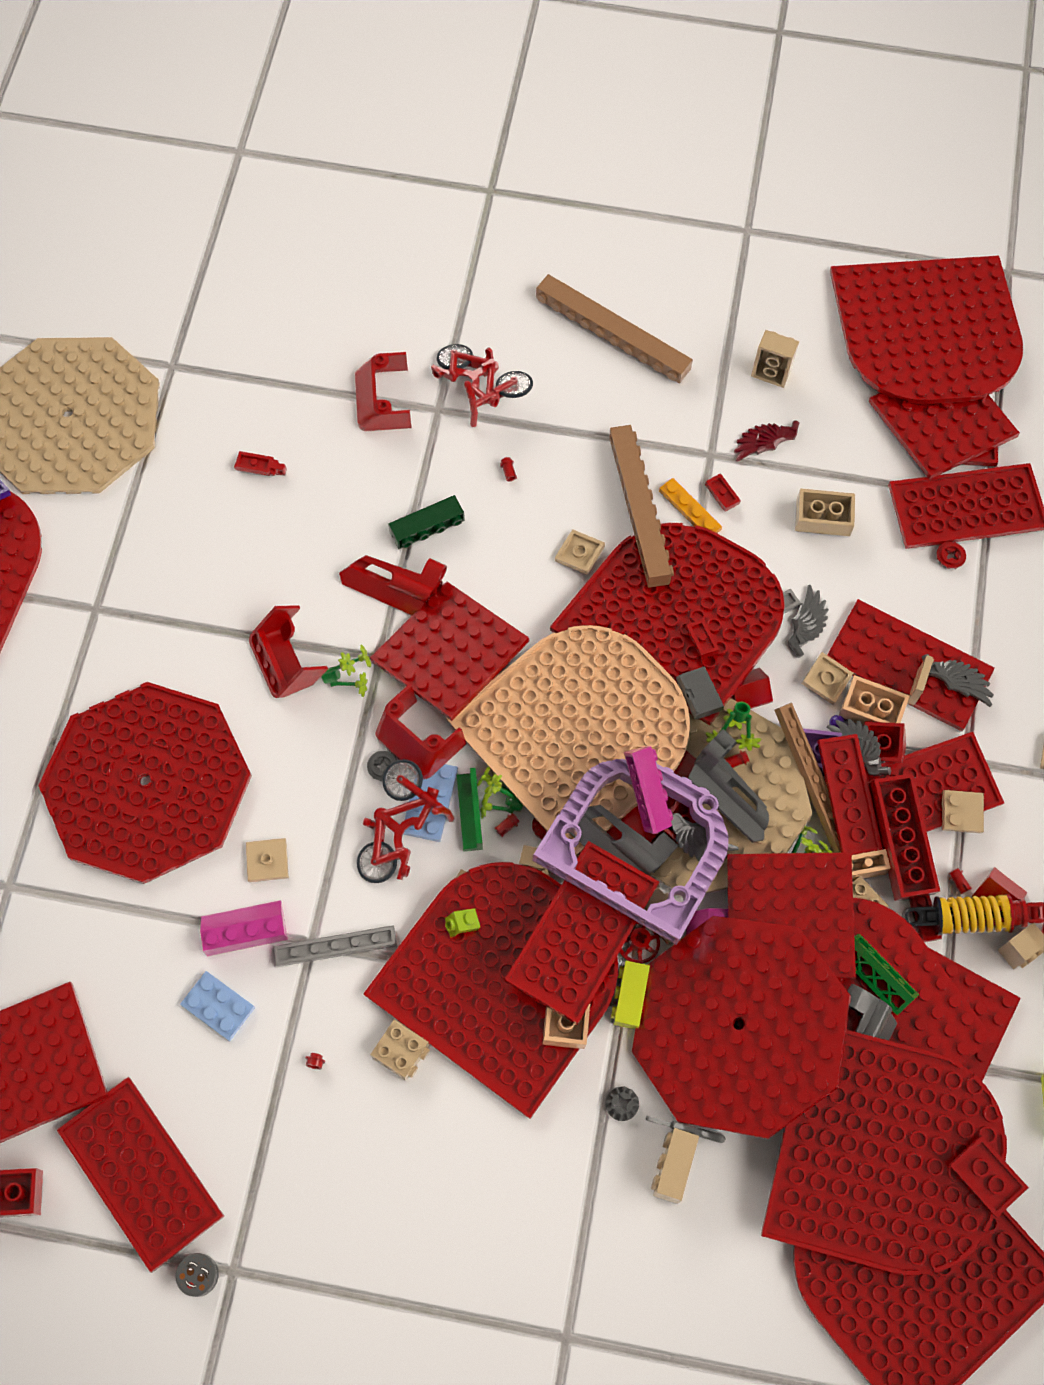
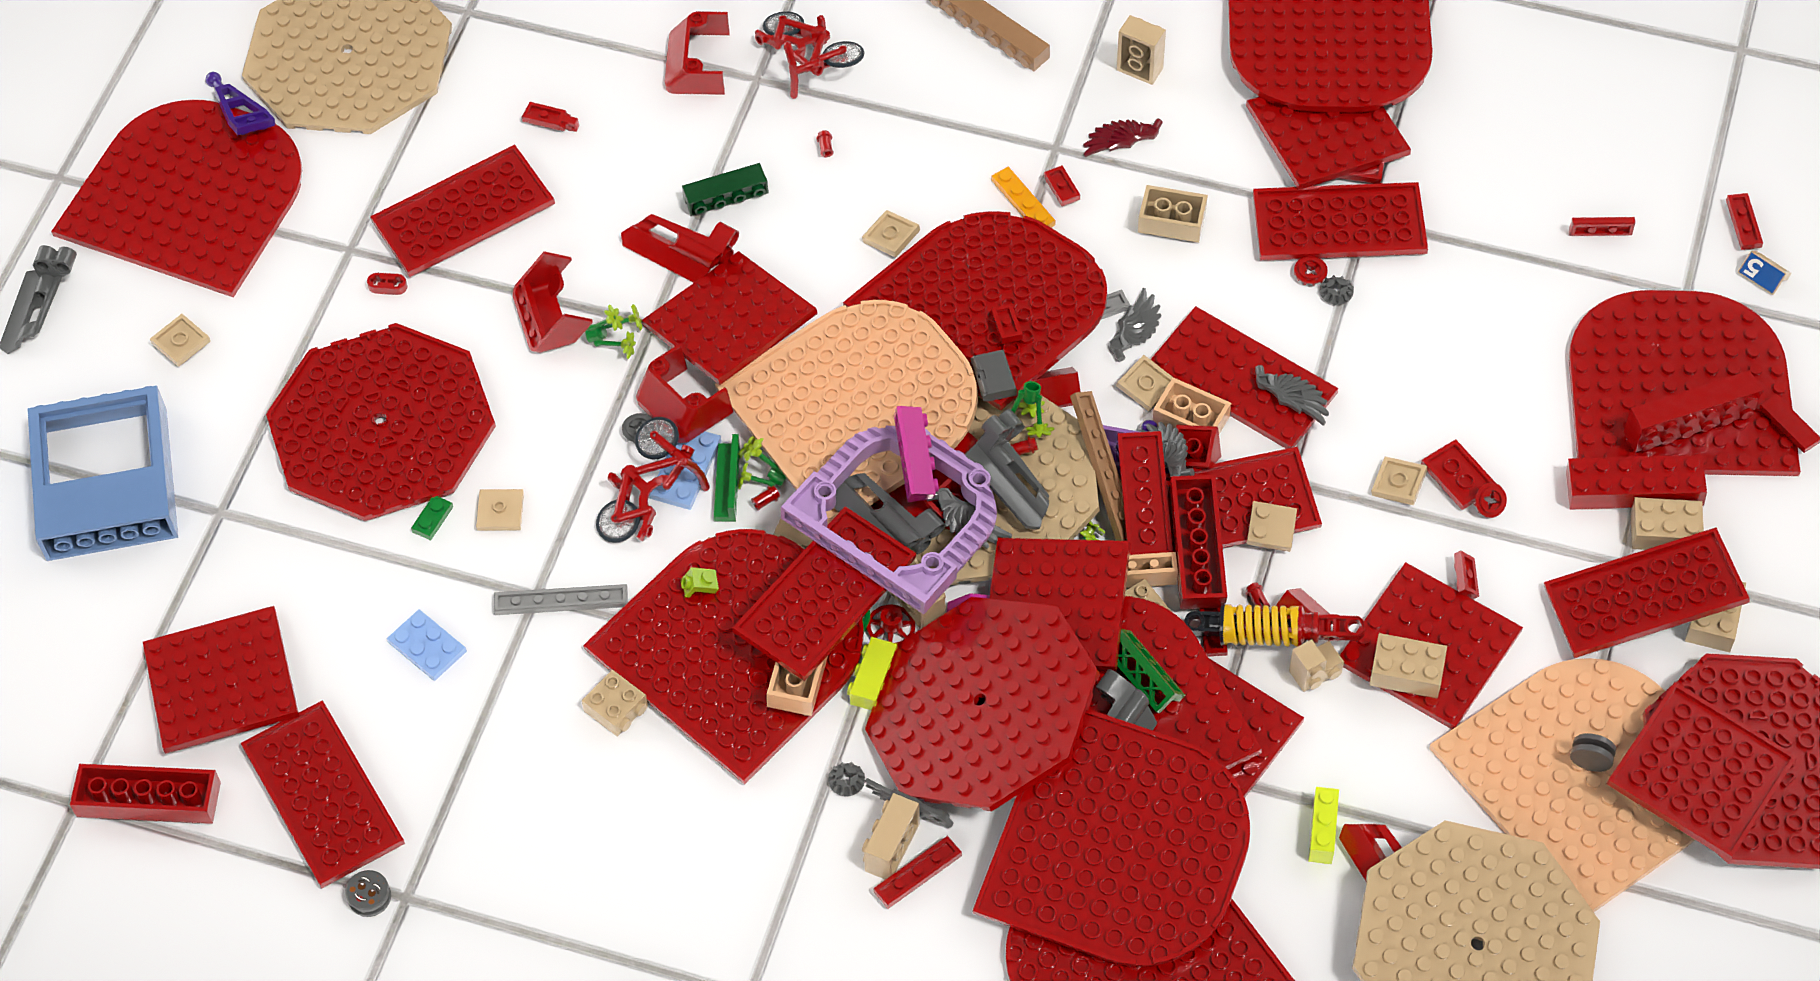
camera: 10 degrees right, 10 degrees down
(134, 640) = (387, 283): none -> red beam
(192, 563) = (462, 210): none -> red plate
(205, 874) = (432, 517): none -> green plate
(243, 928) = (464, 574): dark pink slope -> none
(315, 1061) = (522, 706): red plate -> none
(640, 506) = (964, 189): medium nougat brick -> none
(702, 1194) = (917, 872): none -> red plate
(920, 680) = (1244, 387): tan tile -> none
(972, 577) = (1329, 293): none -> dark grey gear
(988, 1176) = (1222, 866): red plate -> none

